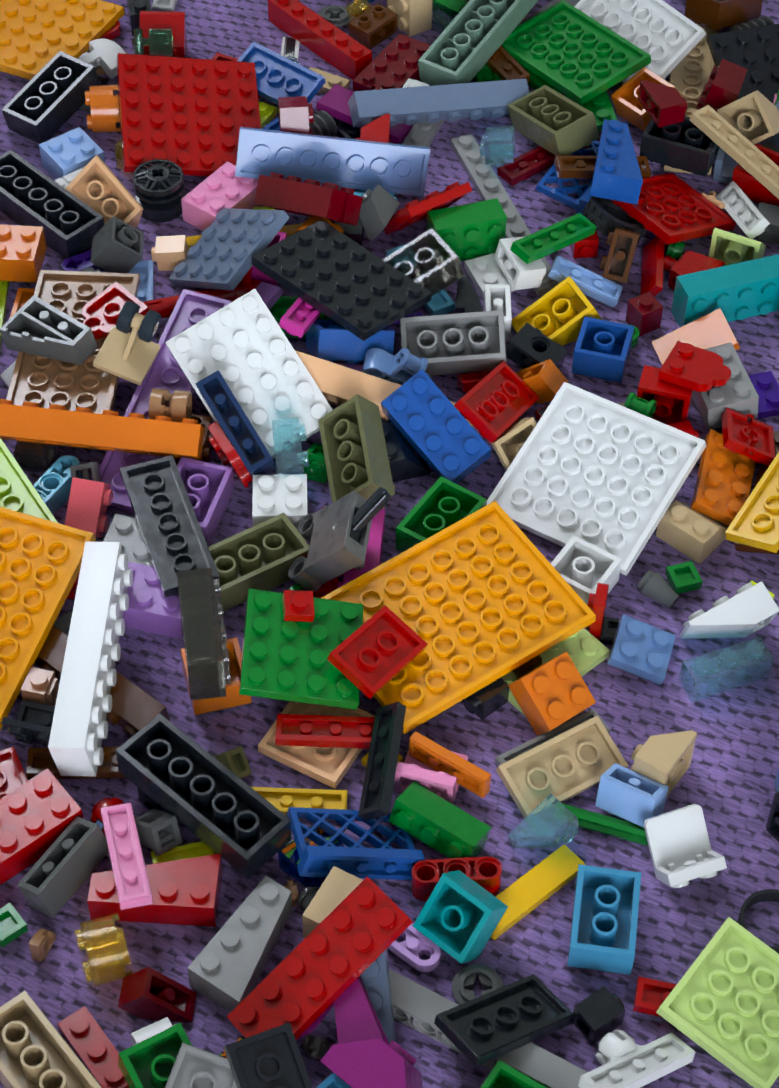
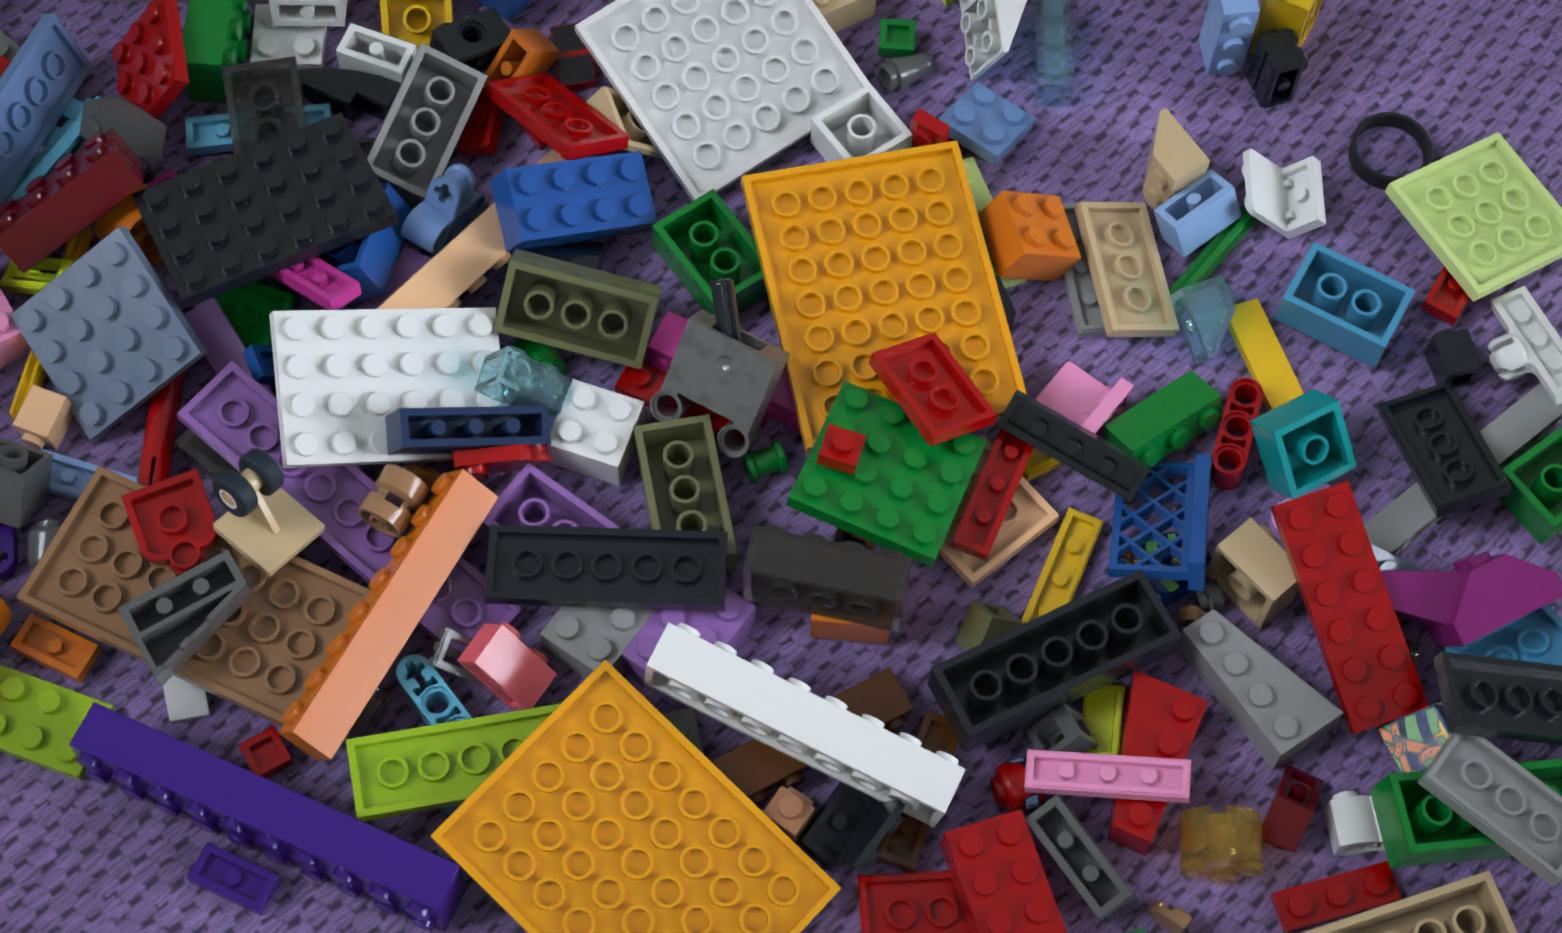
camera: 70 degrees left, 15 degrees up
(443, 760) = (1091, 378): orange tile -> none
(466, 979) = (1393, 462): dark grey gear -> none

